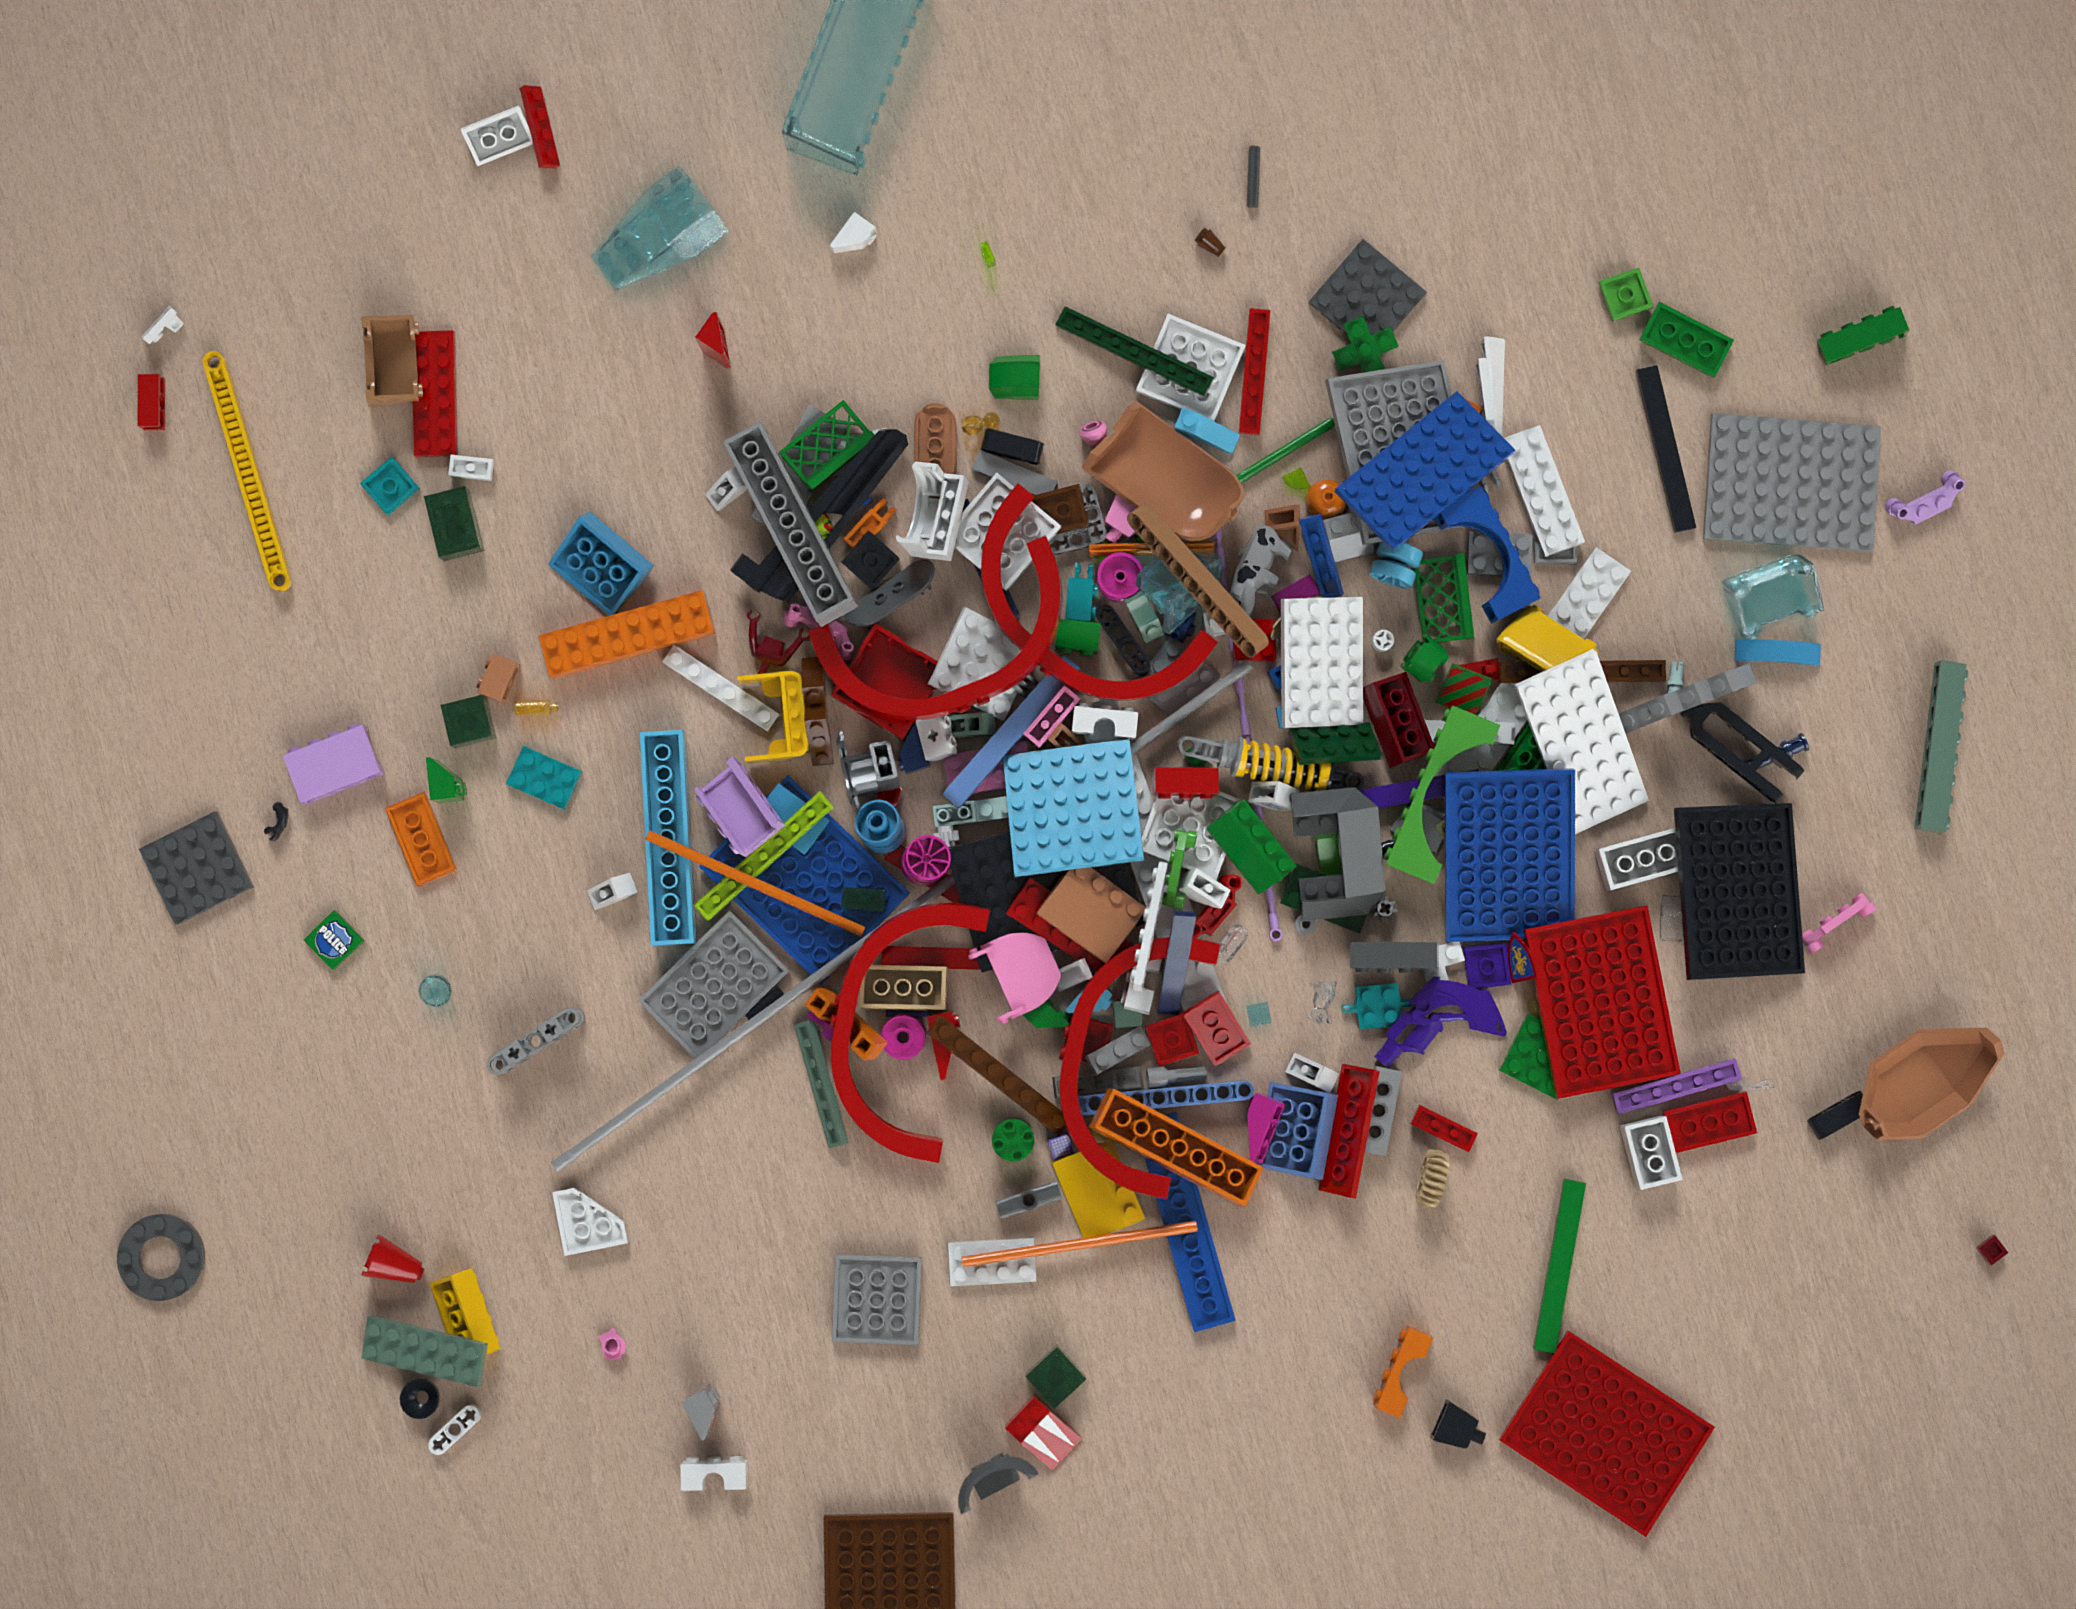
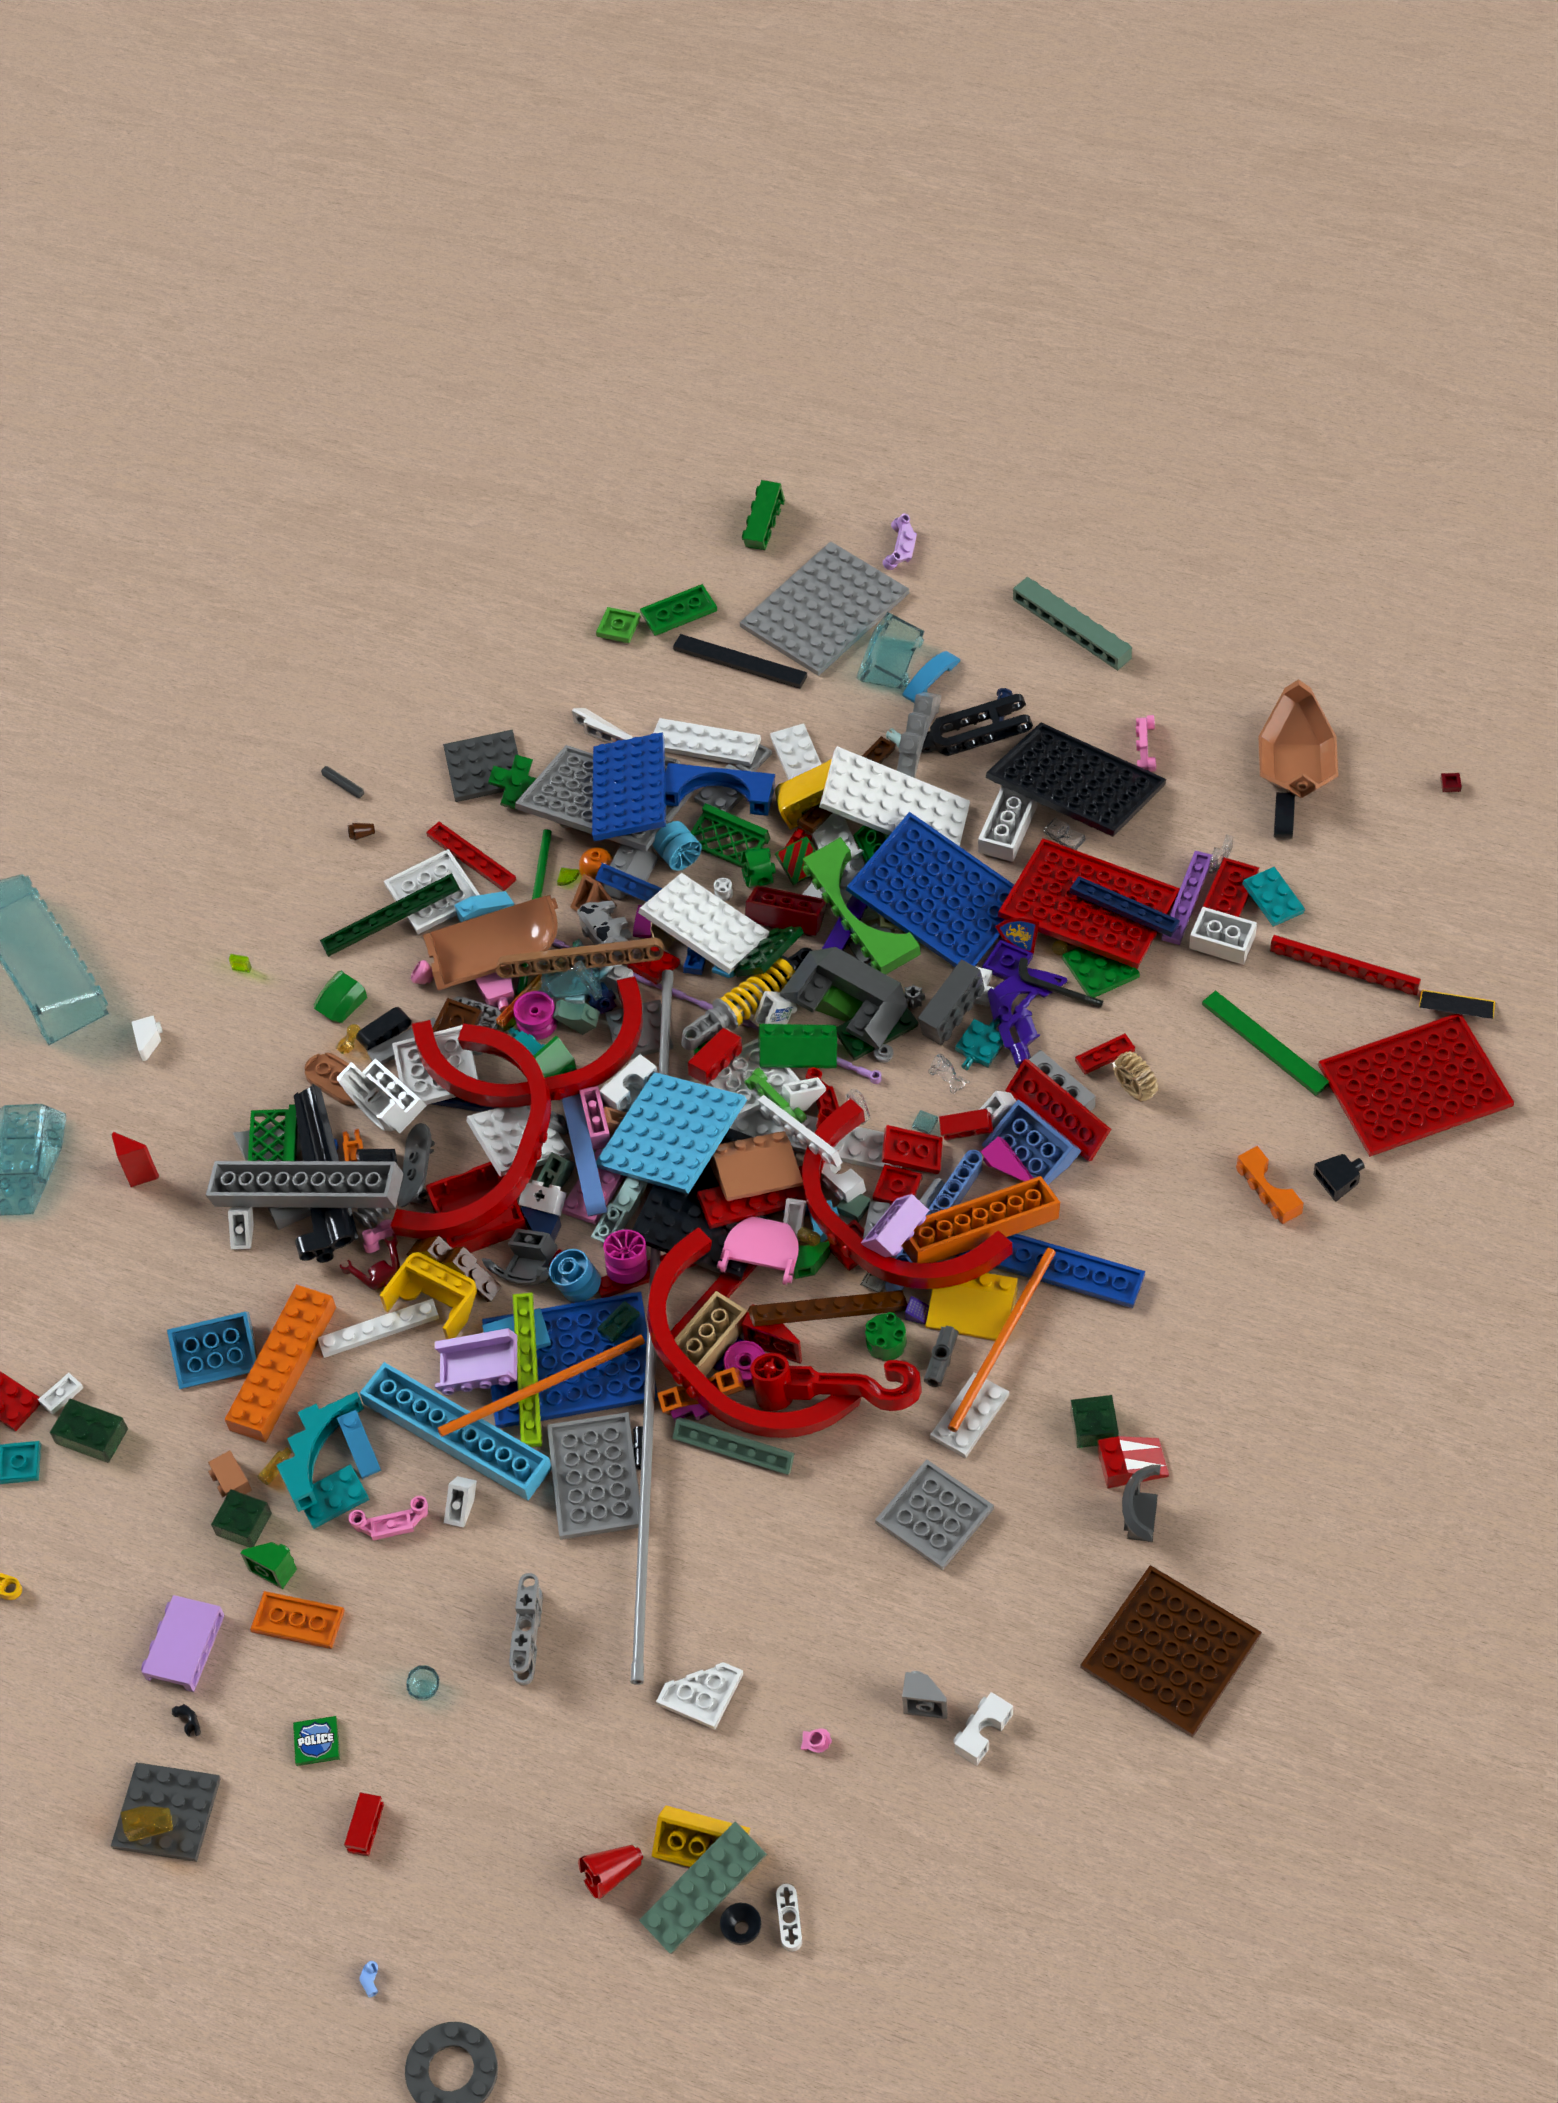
camera: 50 degrees left, 30 degrees down
(168, 867) = (146, 1822): none -> clear yellow slope
(181, 1136) = (367, 1978): none -> light blue arm
(293, 1037) = (364, 1824): none -> red piece
(551, 848) = (390, 1524): none -> bright pink plate
(593, 715) = (318, 1426): none -> teal arch
(602, 763) = (359, 1444): none -> dark azure slope
(897, 1083) = (779, 1384): none -> red piece
(1060, 1004) = (808, 1236): none -> clear yellow cylinder
(1104, 1089) = (896, 1226): none -> lavender slope
(1122, 640) = (582, 1037): black beam -> none
(1176, 962) = (840, 1132): tile -> none
(1275, 1058) = (966, 1124): none -> red piece
(1475, 1001) = (1026, 978): none -> pearl dark grey piece
(1615, 1042) = (1124, 906): none -> dark blue plate
(1698, 1294) = (1345, 965): none -> red plate
(1724, 1417) = (1457, 1004): none -> black sticker
(1732, 1168) = (1273, 896): none -> teal plate

